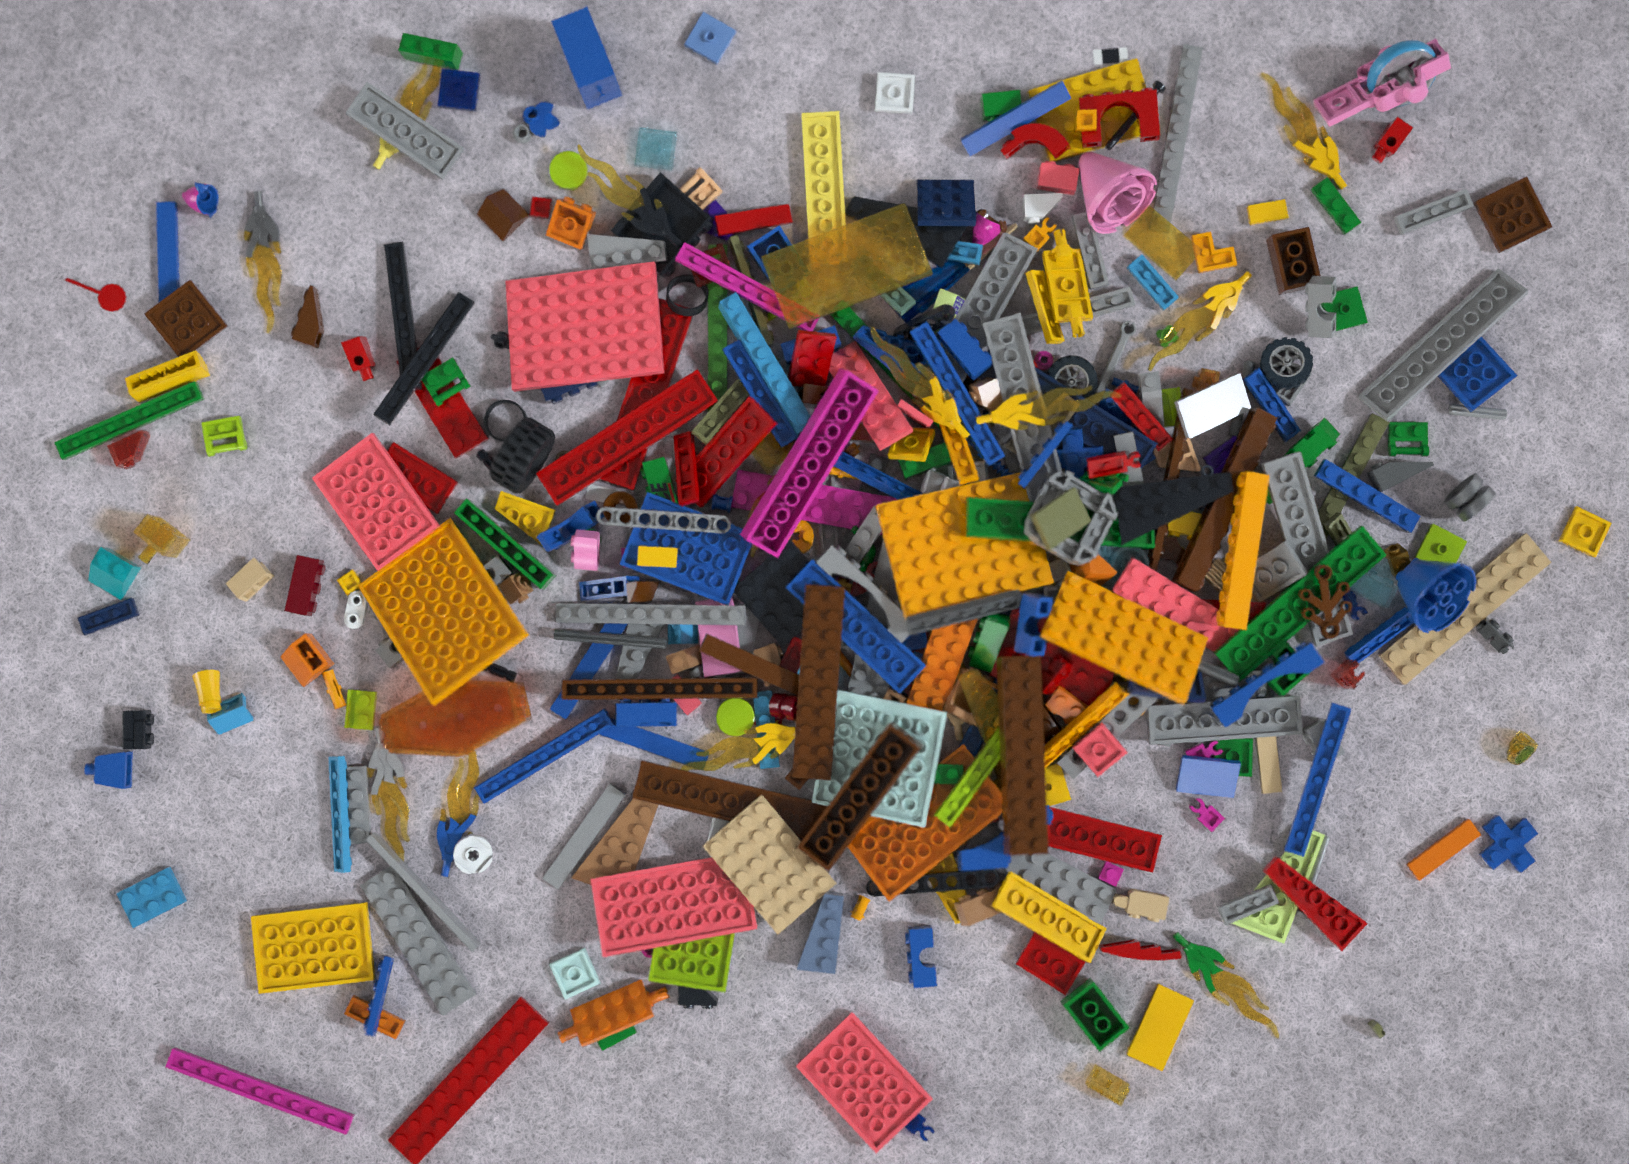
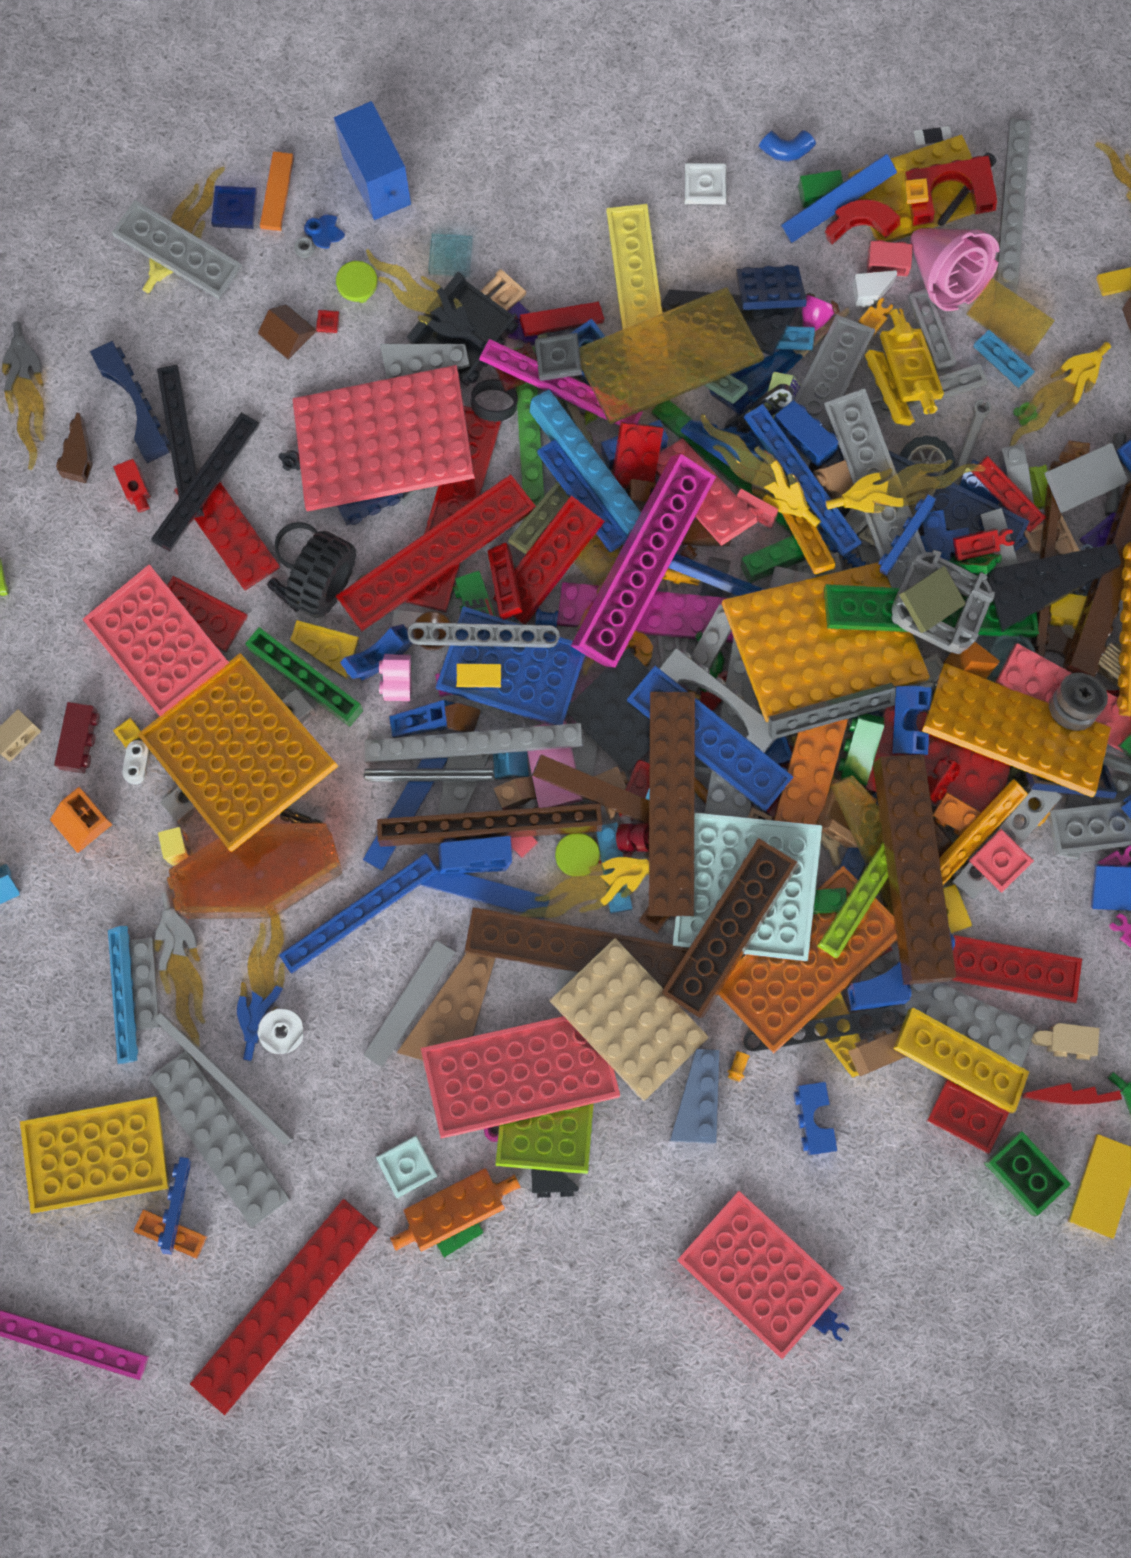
camera: 10 degrees left, 10 degrees down
(334, 689) = (112, 852): light orange pin -> none
(360, 709) = (143, 874): lime plate -> none
(374, 310) = (147, 436): none -> dark blue arch
(388, 691) = (175, 845): none -> light yellow brick
(430, 51) = (202, 168): green brick -> none
(442, 376) = (227, 500): green plate -> none
(499, 75) = (277, 191): none -> orange tile
(516, 588) = (320, 724): medium nougat brick -> none
(570, 222) = (361, 333): orange plate -> none
(710, 38) = (502, 141): medium blue plate -> none
(746, 263) = (558, 356): none -> dark grey tile
(913, 446) = (756, 541): yellow tile -> none
(973, 64) = (787, 149): none -> blue cylinder
(1043, 366) = (894, 440): dark pink plate -> none
(1108, 1085) = (1050, 1259): clear yellow hinge -> none
(1110, 873) = (1026, 1008): dark pink plate -> none
(1180, 617) = (1078, 701): none -> flat silver wheel
(1210, 258) = (1065, 331): light orange plate -> none

